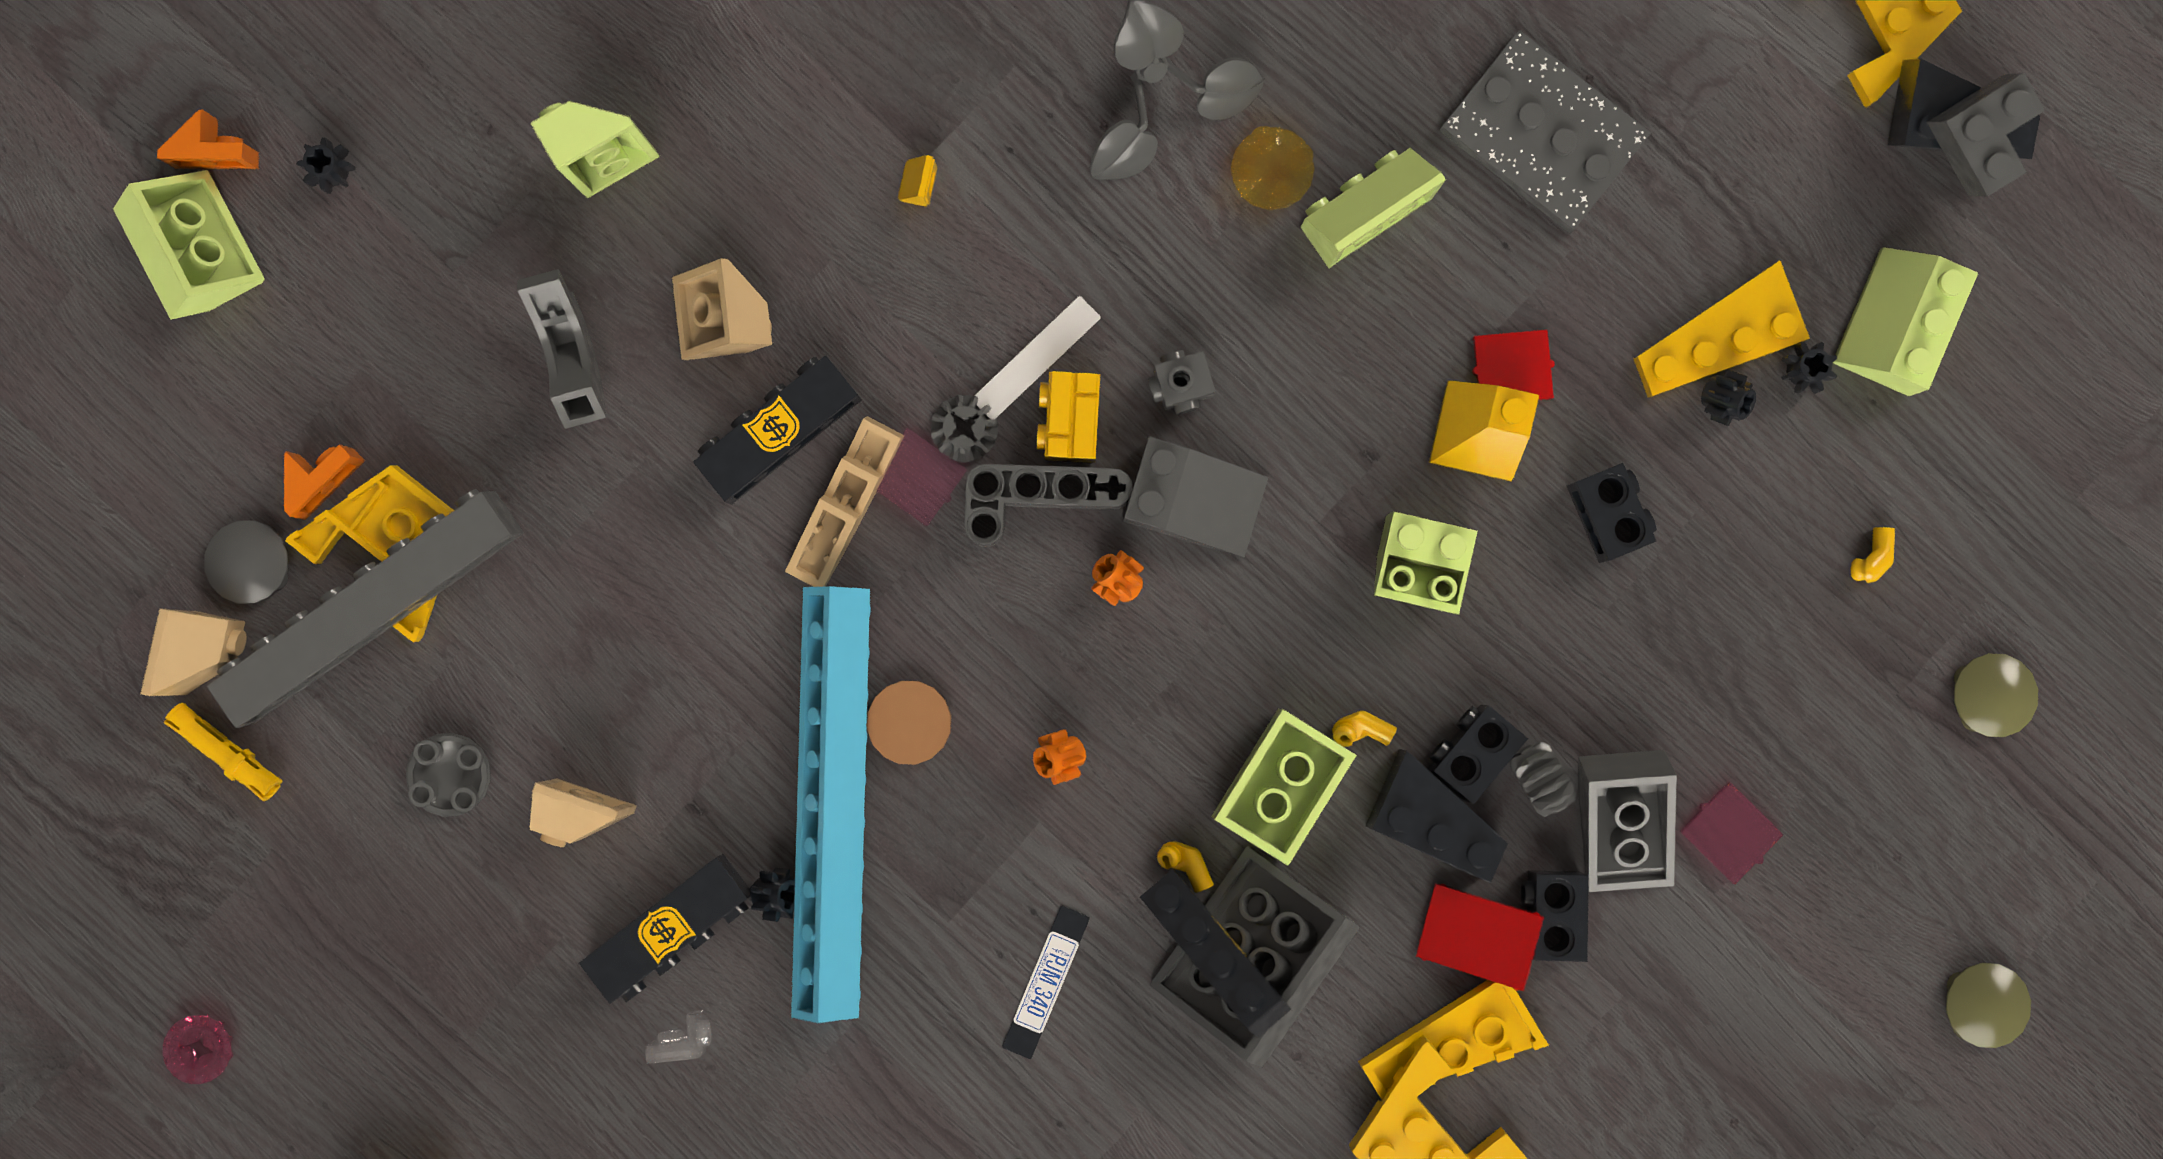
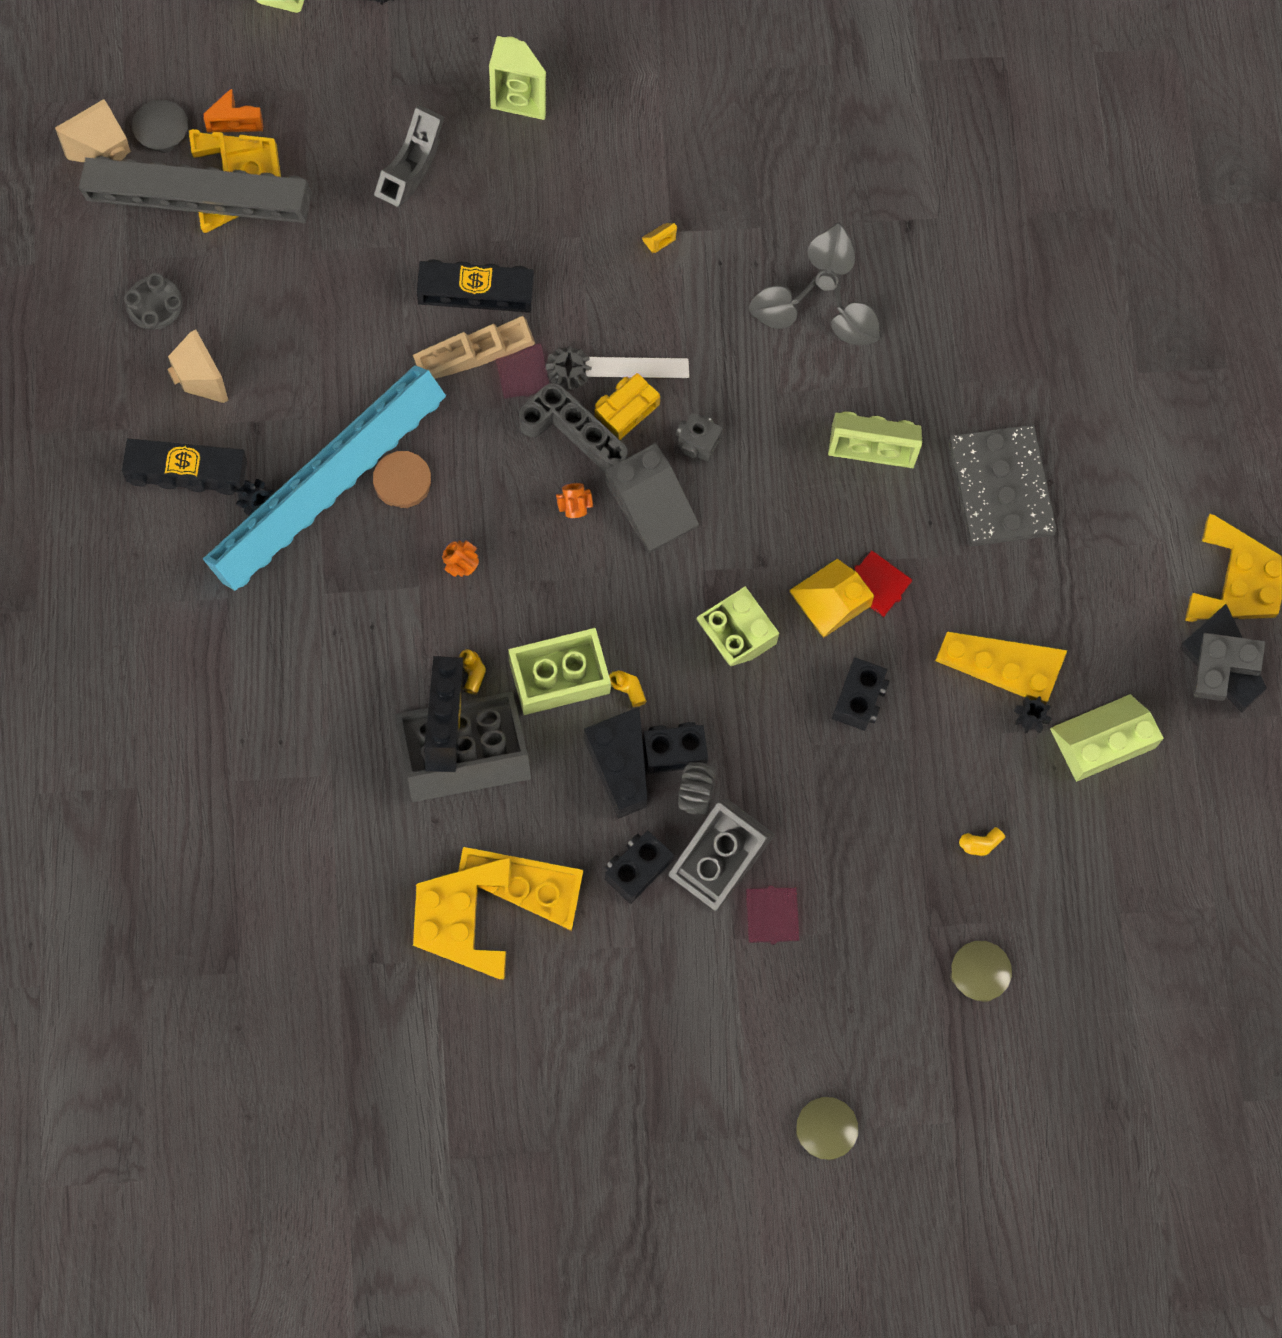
camera: 35 degrees right, 15 degrees down
(235, 762) = (60, 206): yellow pin -> none
(675, 1047) = (133, 526): clear bracket -> none
(719, 312) = (502, 210): tan slope -> none
(1046, 982) = (343, 666): sticker -> none
(1272, 168) = (843, 381): clear yellow dish -> none
(1480, 936) = (588, 839): red piece -> none
(1728, 397) = (975, 691): black gear -> none

